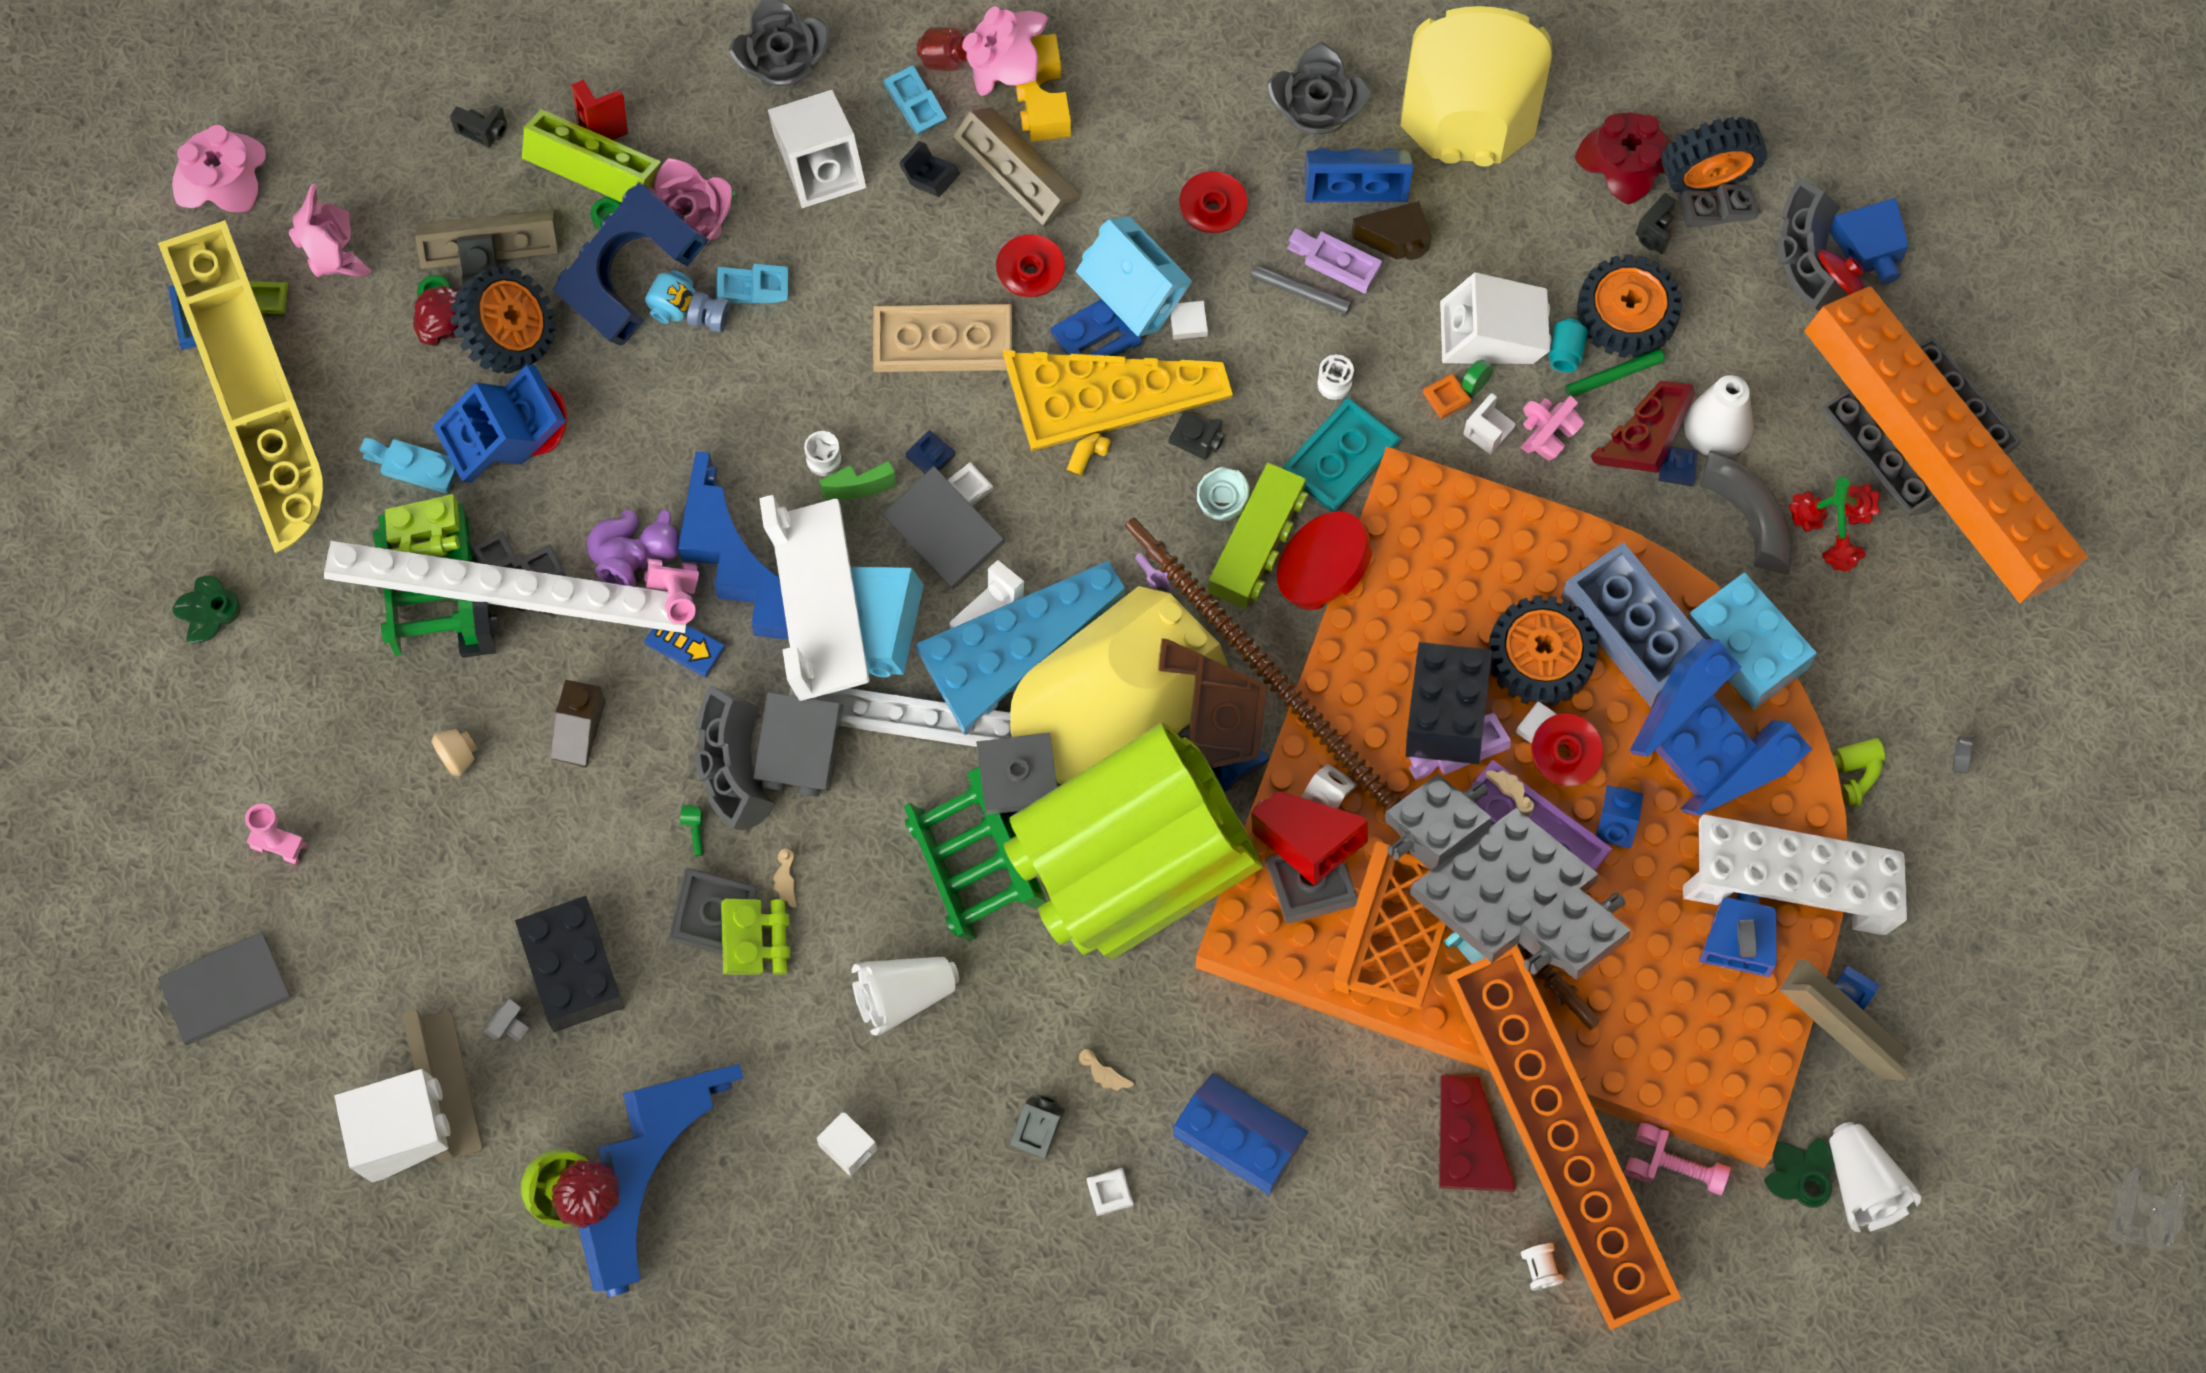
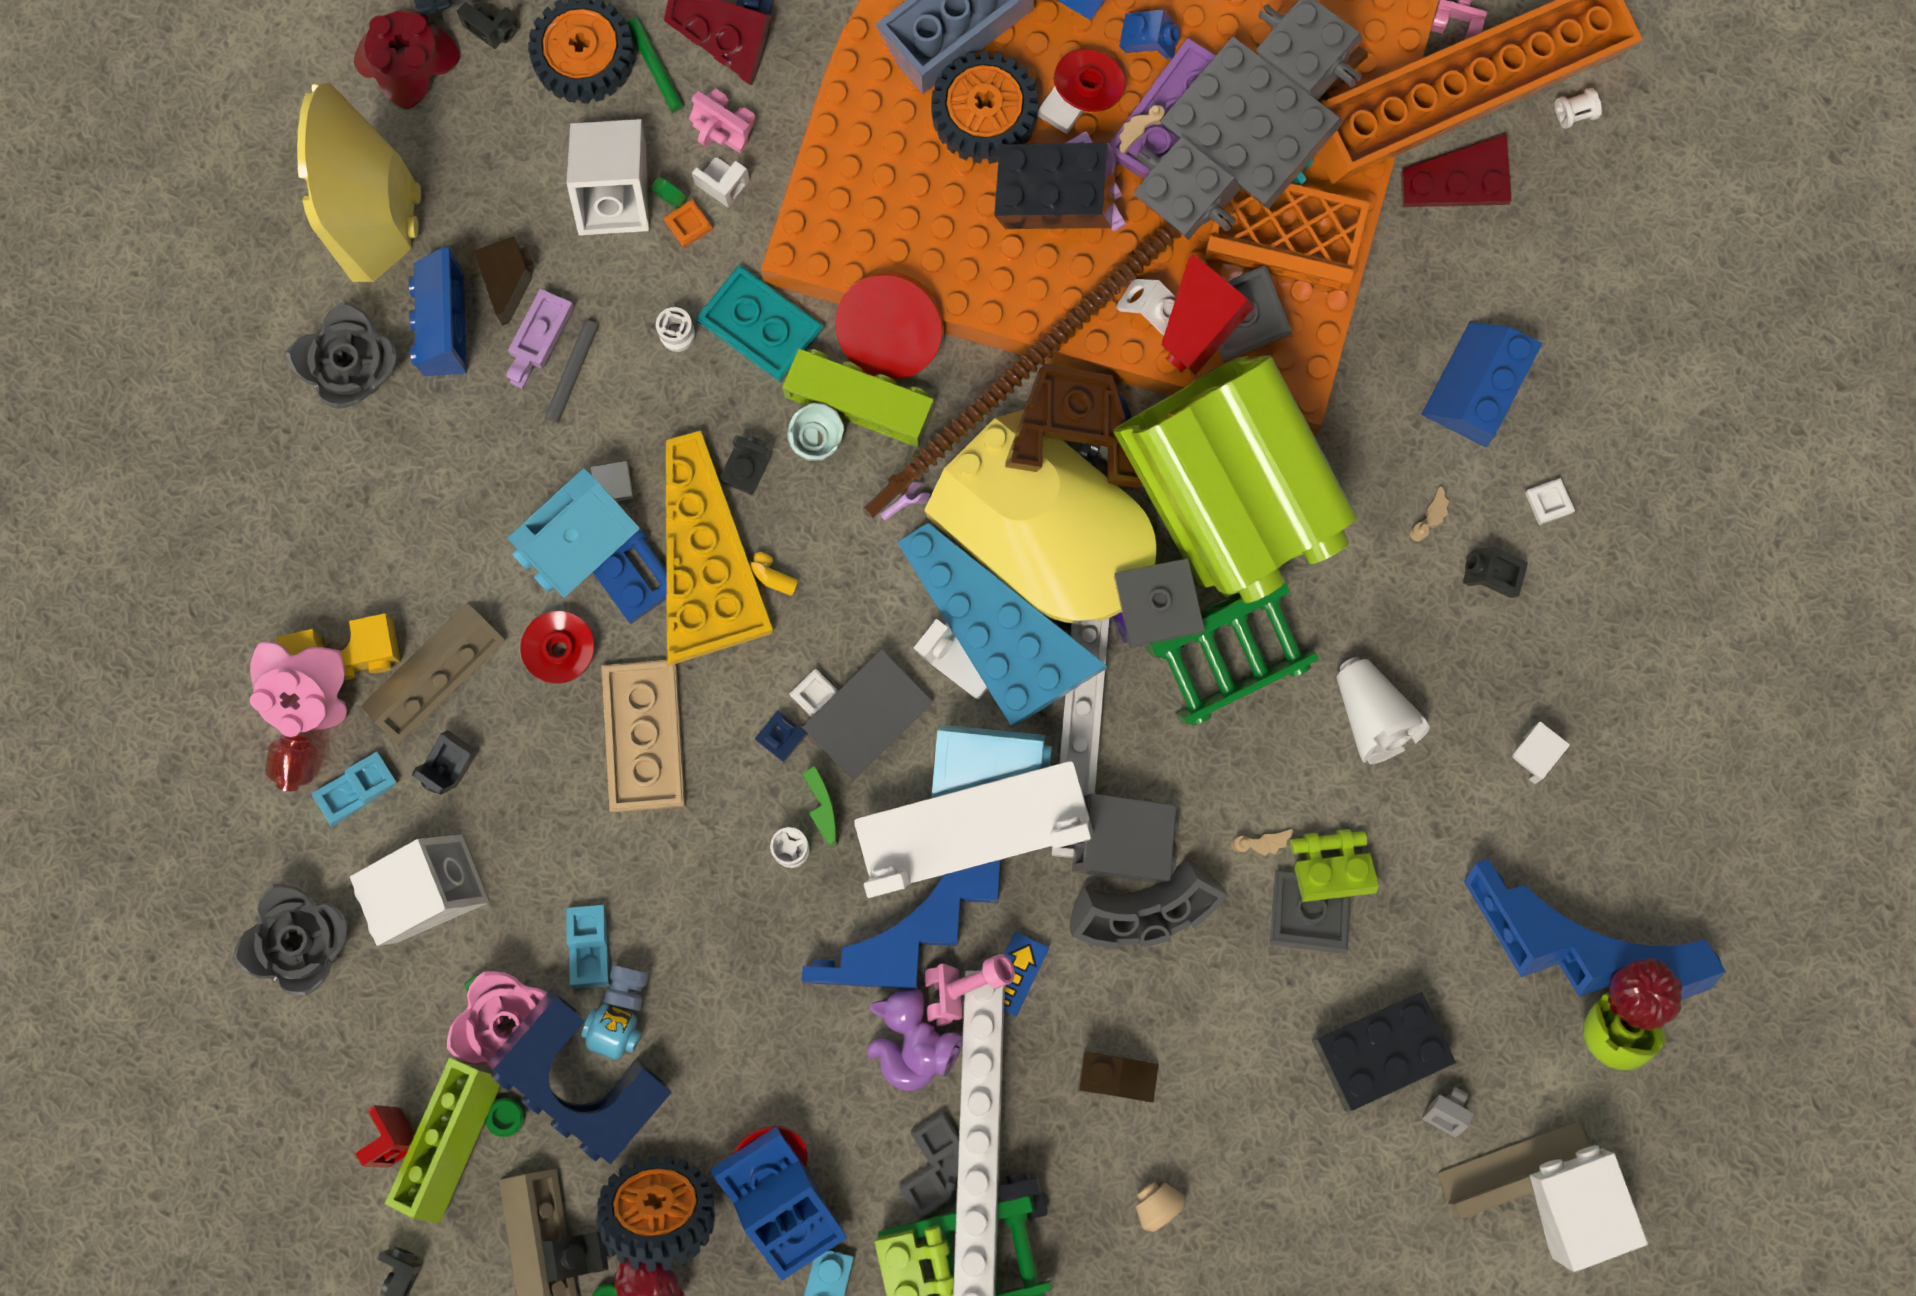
camera: 90 degrees left, 10 degrees up
(693, 817) = (1206, 945): green hand -> none
(1217, 189) = (464, 449): red dish -> none
(1567, 345) = (628, 105): teal brick -> none

